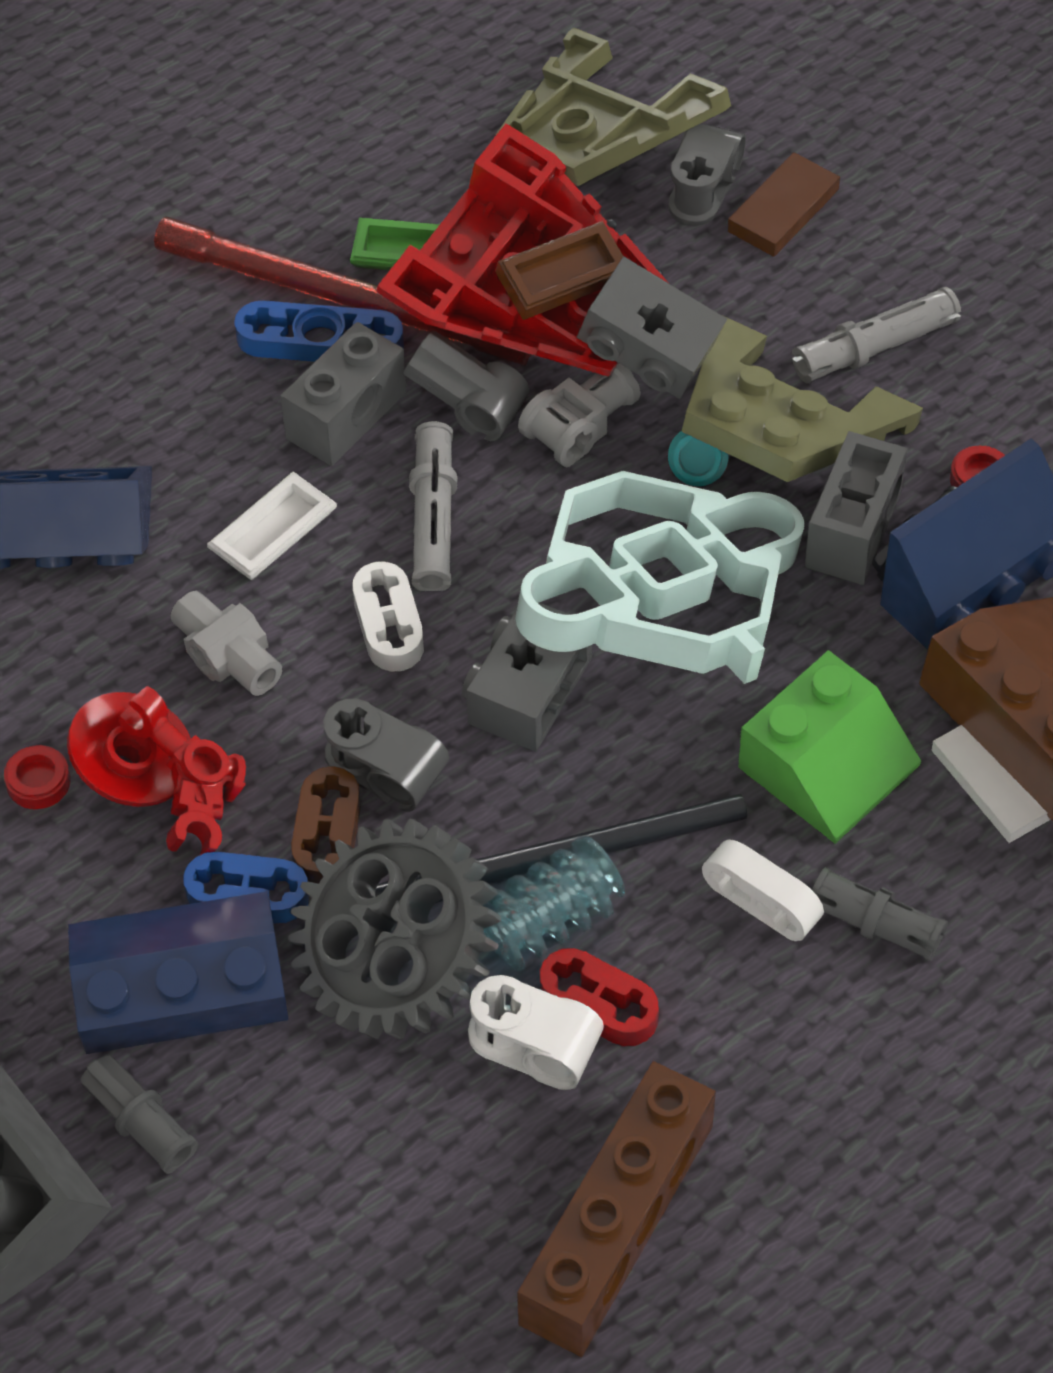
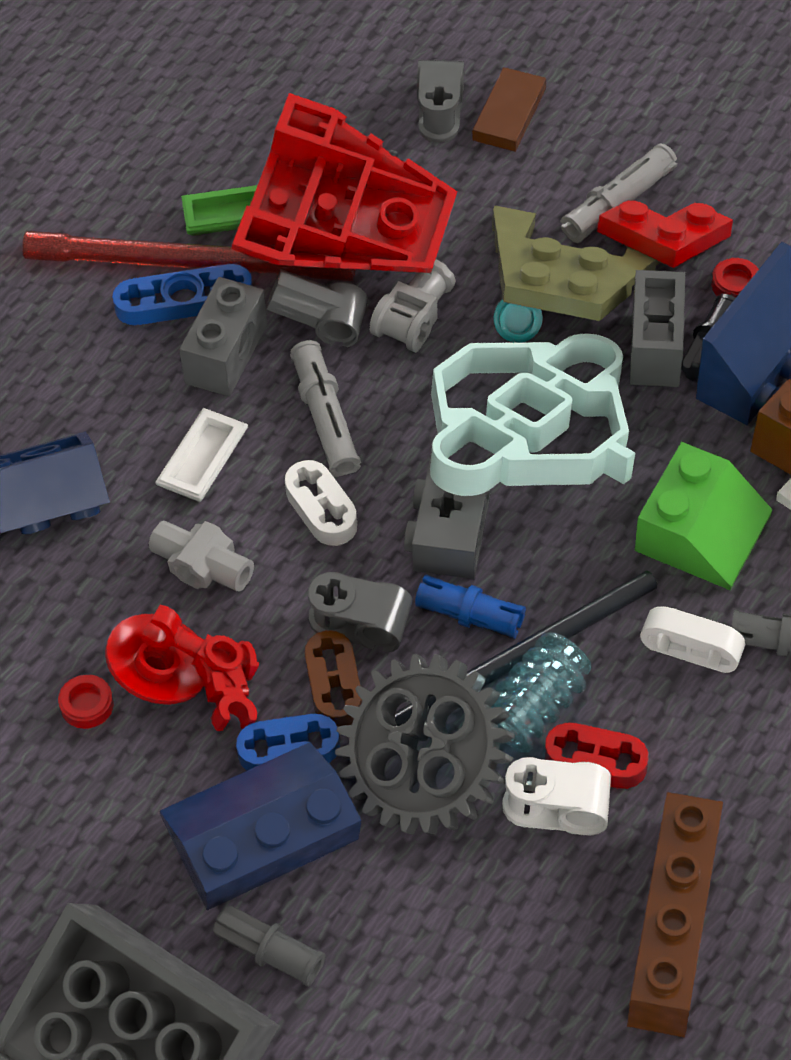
camera: 15 degrees left, 0 degrees up
(516, 782) = (470, 606): none -> blue pin
(559, 270) = (371, 197): reddish brown tile -> none
(600, 128) = (344, 78): olive wing -> none
(642, 302) = (457, 227): dark grey brick -> none
(912, 403) = (665, 238): none -> red plate

